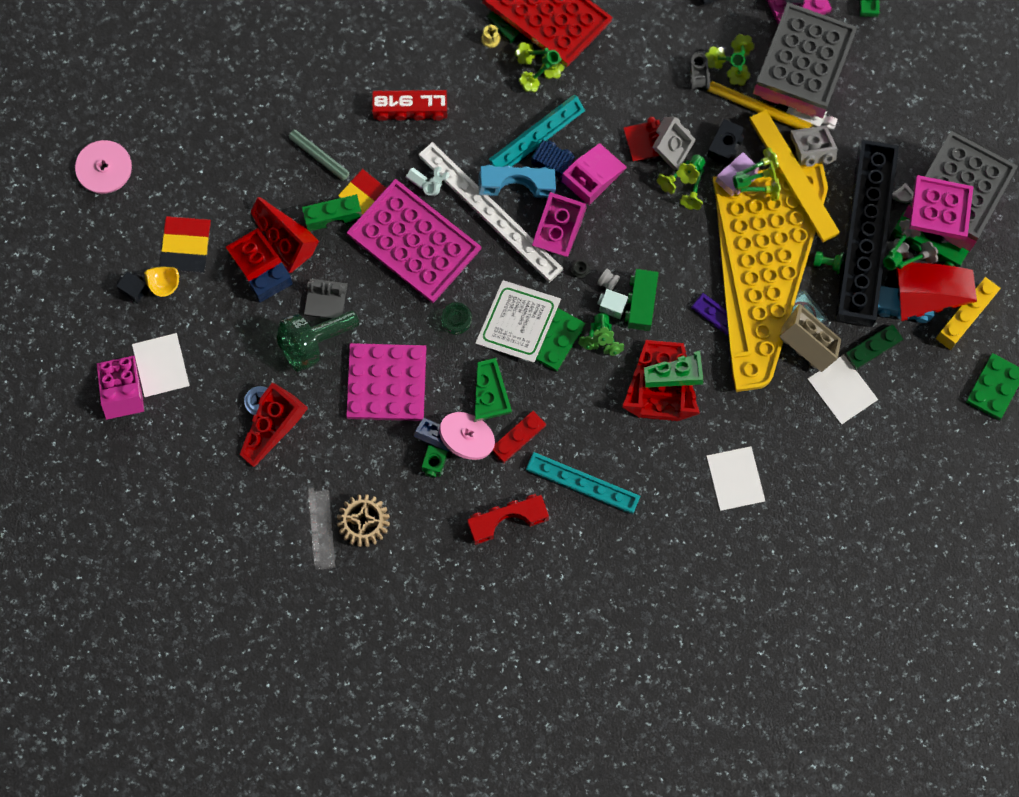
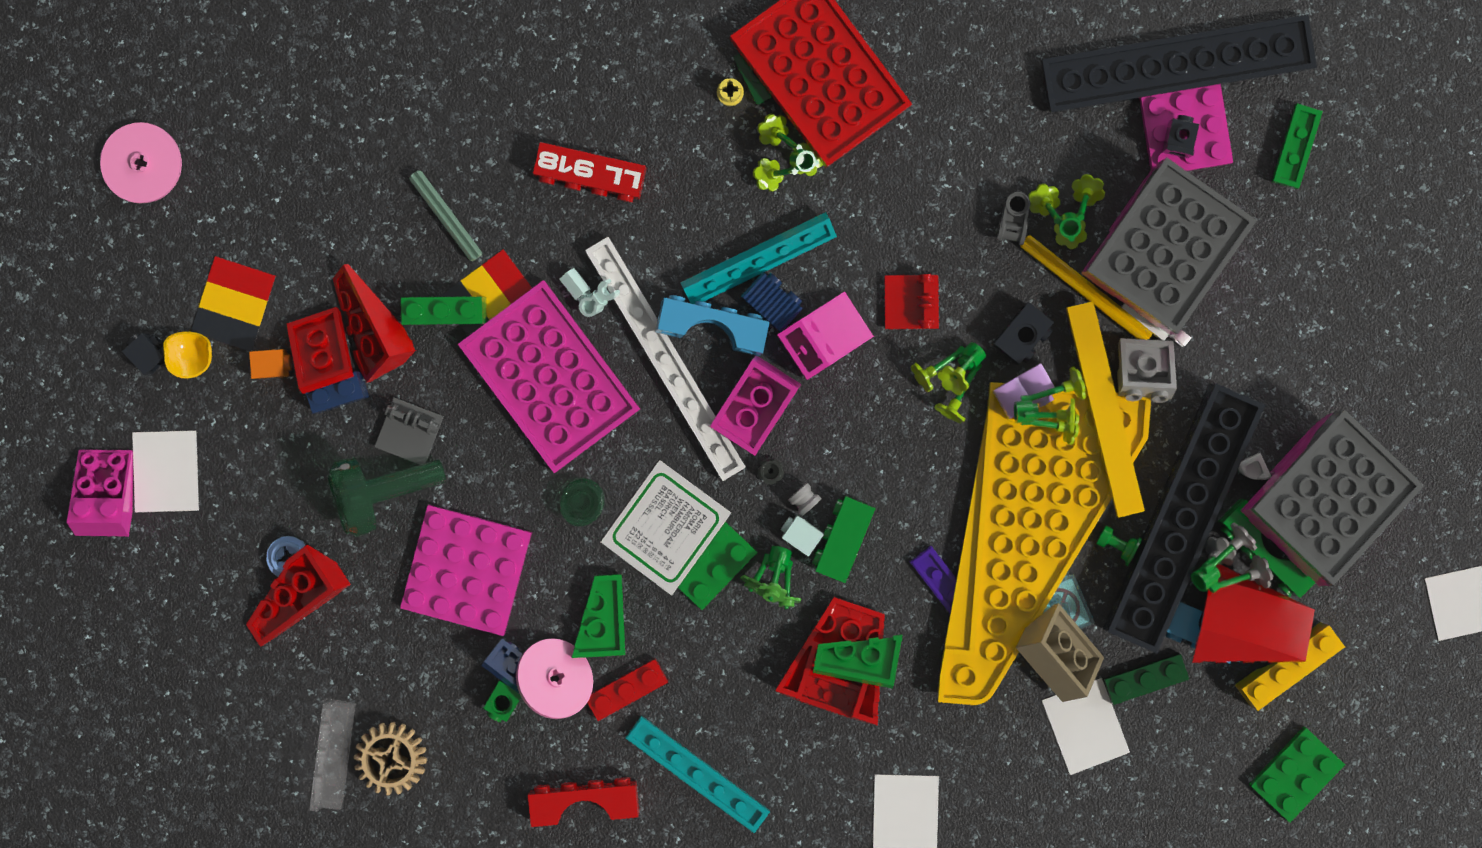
camera: 20 degrees right, 15 degrees up
(220, 274) = (270, 364): none -> orange brick
(673, 141) = (947, 320): light grey plate -> none
(941, 207) = (1293, 531): dark pink plate -> none

